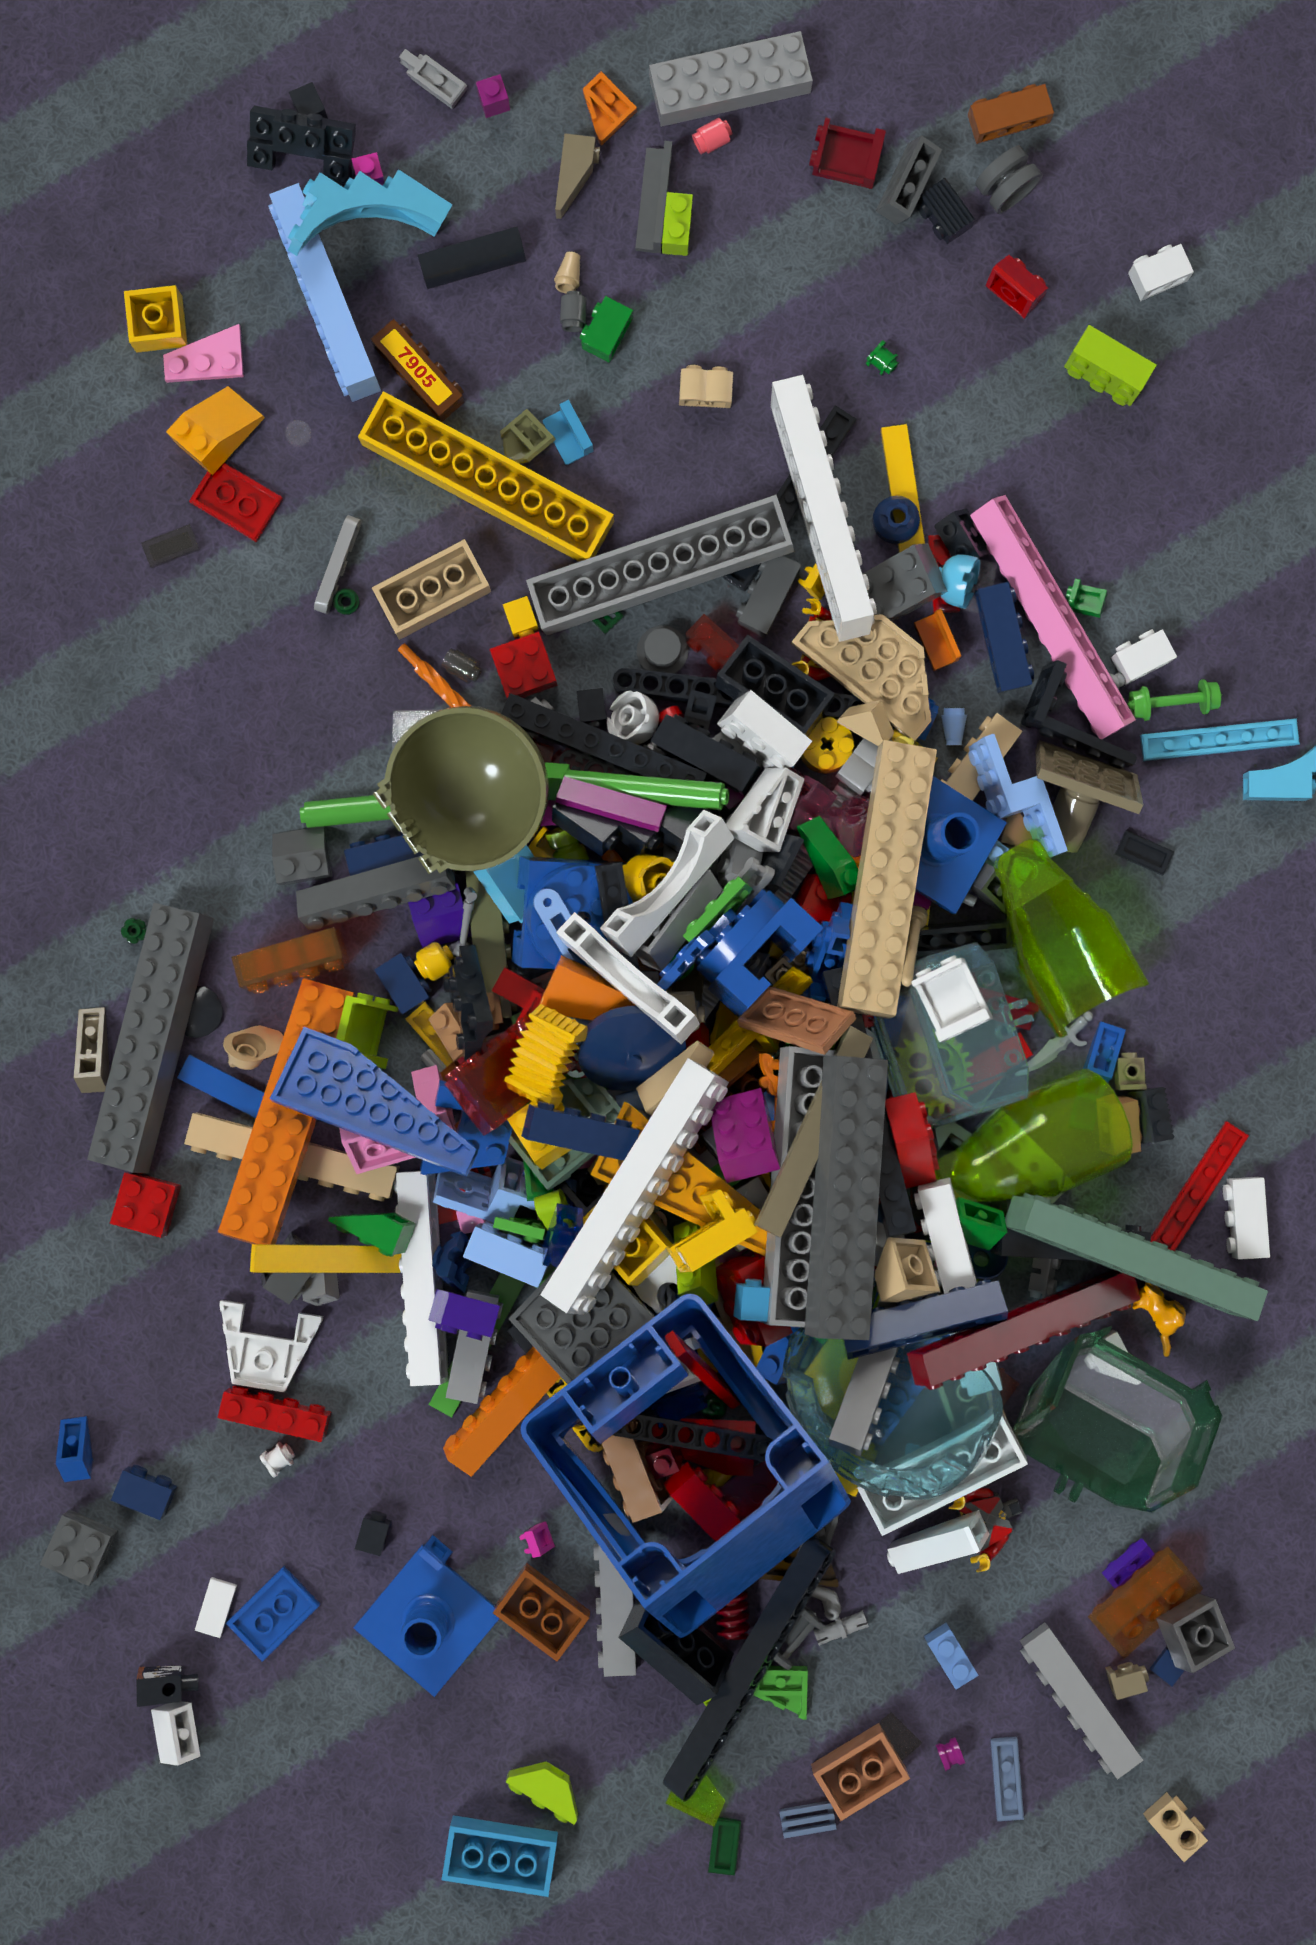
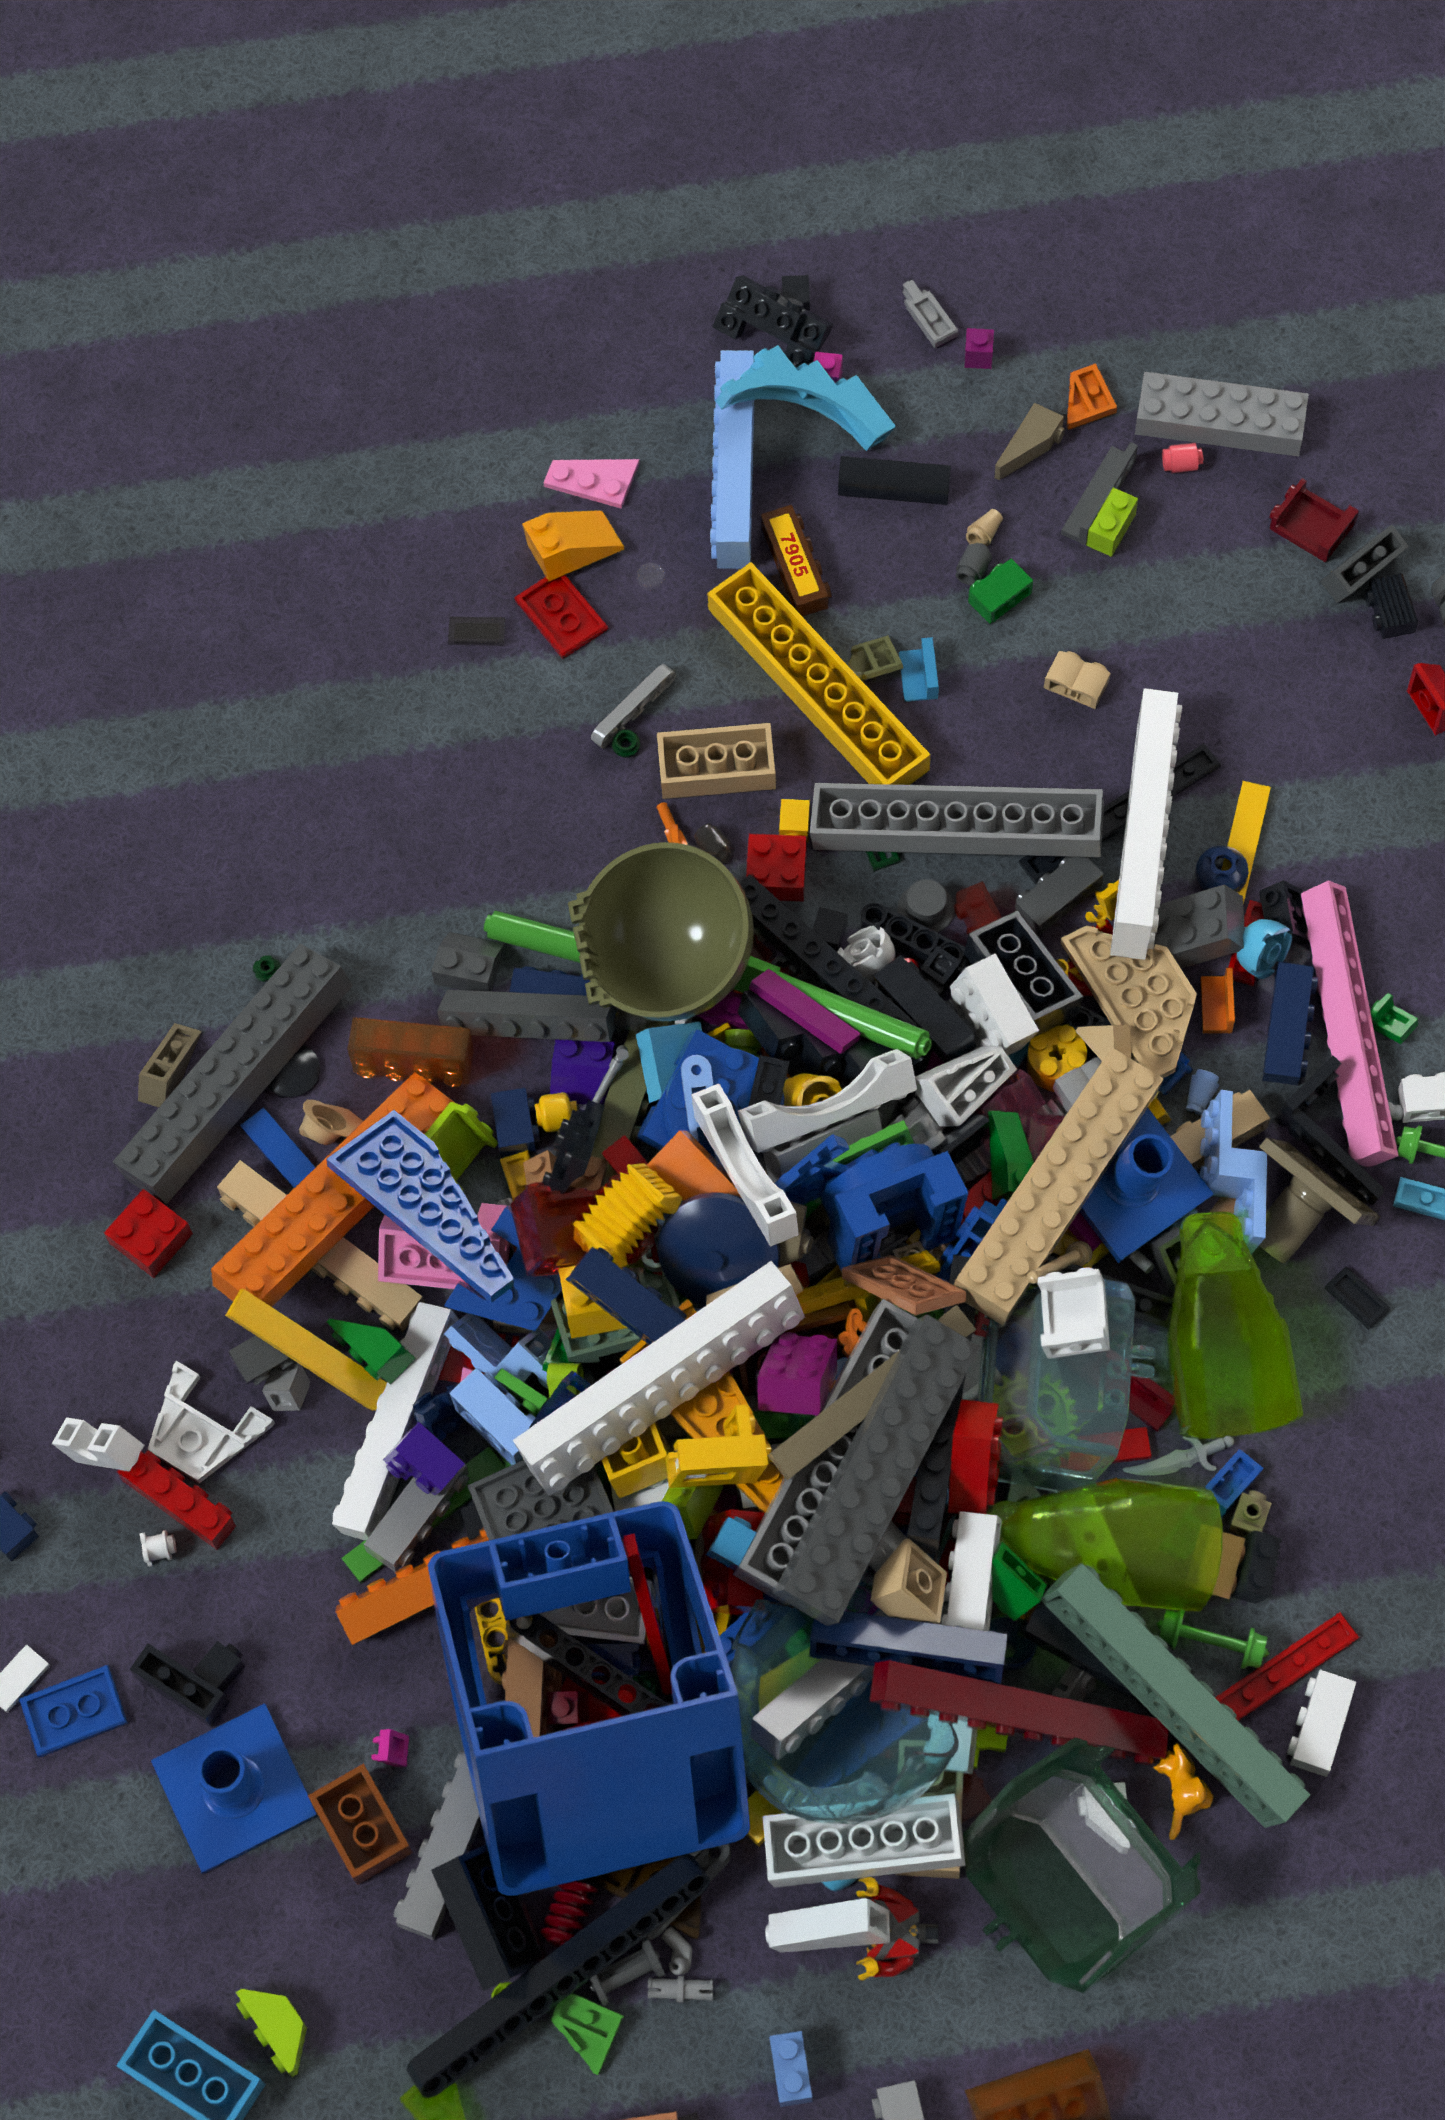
camera: 30 degrees right, 20 degrees down
(155, 318) = (560, 424): yellow brick -> none
(192, 1403) = (104, 1447): none -> white arch
(348, 1564) = (179, 1685): none -> black brick
(435, 1553) = (275, 1715): blue tile -> none
(883, 359) = (1270, 717): green brick -> none
(1123, 1568) = (1035, 2051): dark purple plate -> none
(1172, 1181) = (1253, 1648): none -> bright green piece

